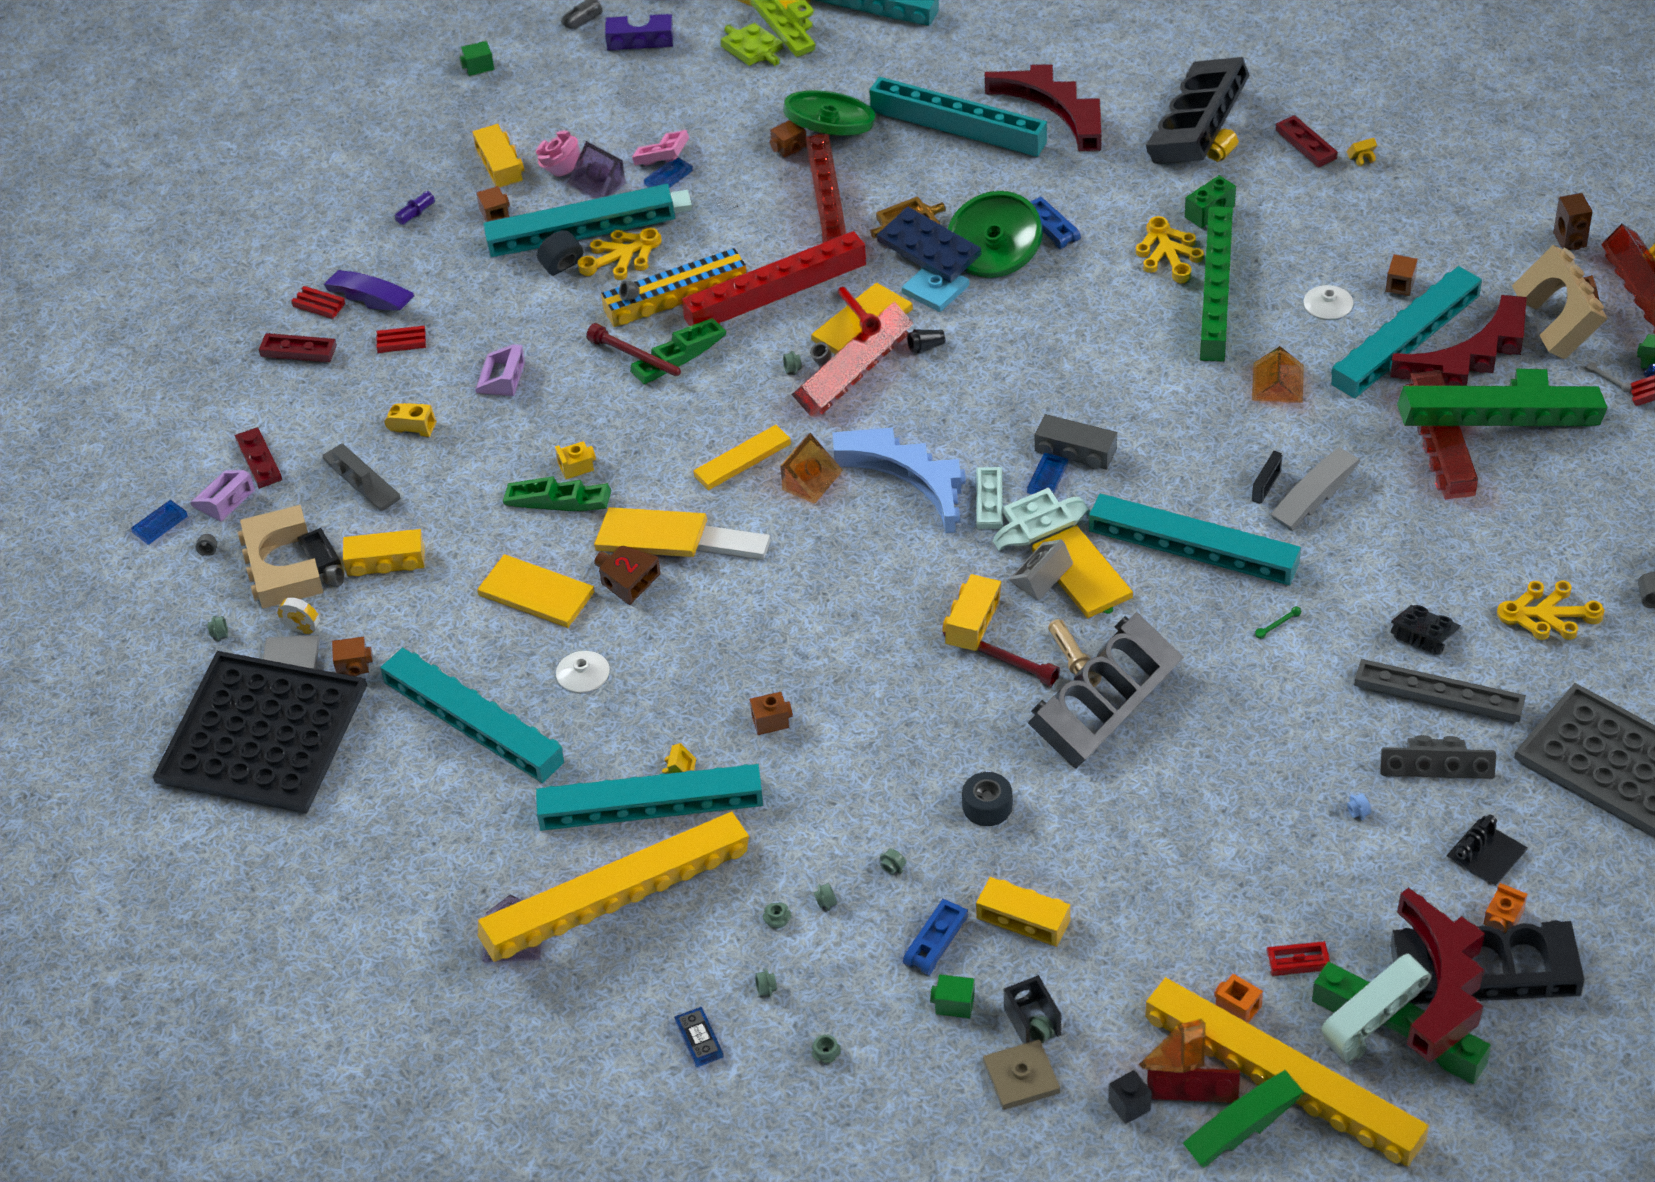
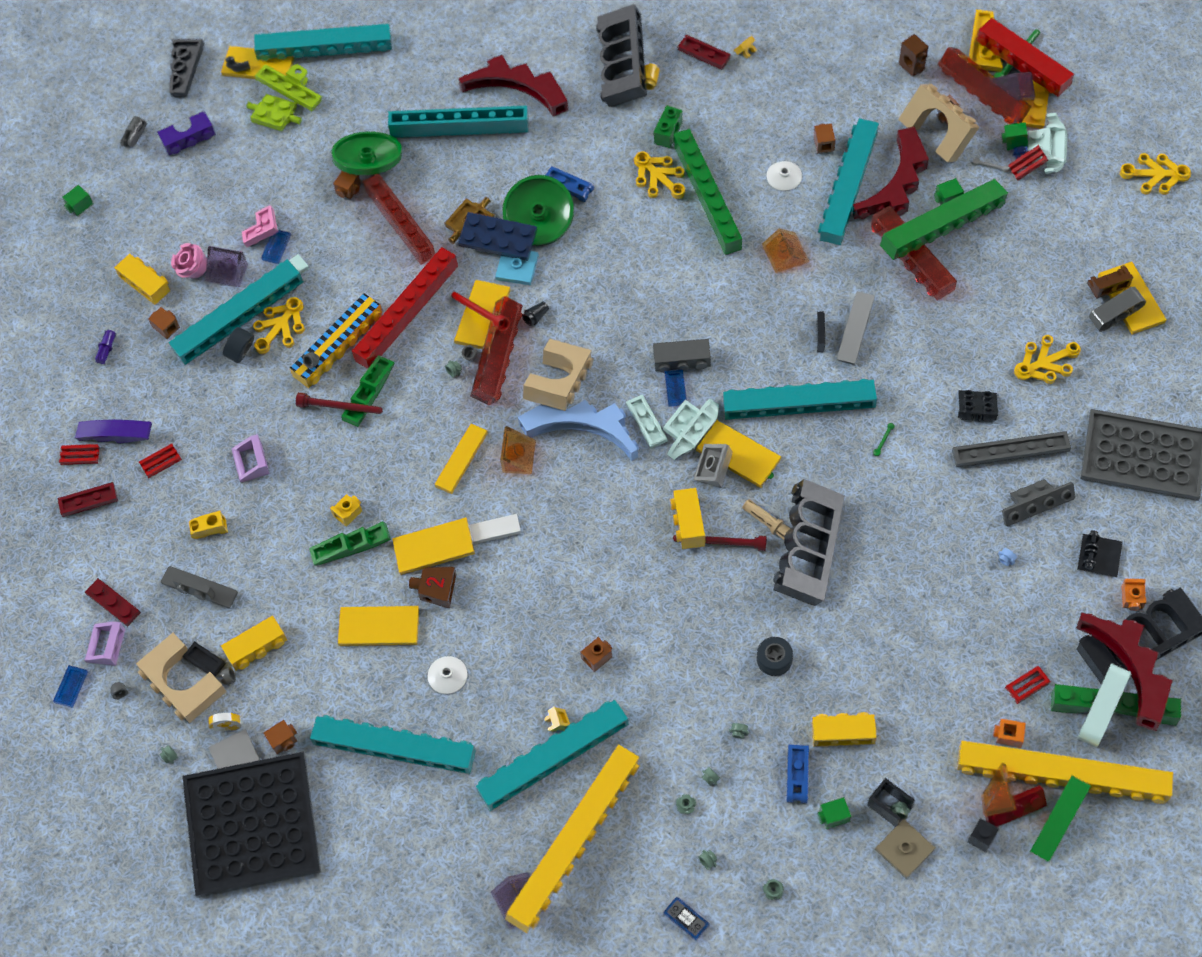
camera: 25 degrees left, 15 degrees up
(934, 401) = (559, 392): none -> tan arch

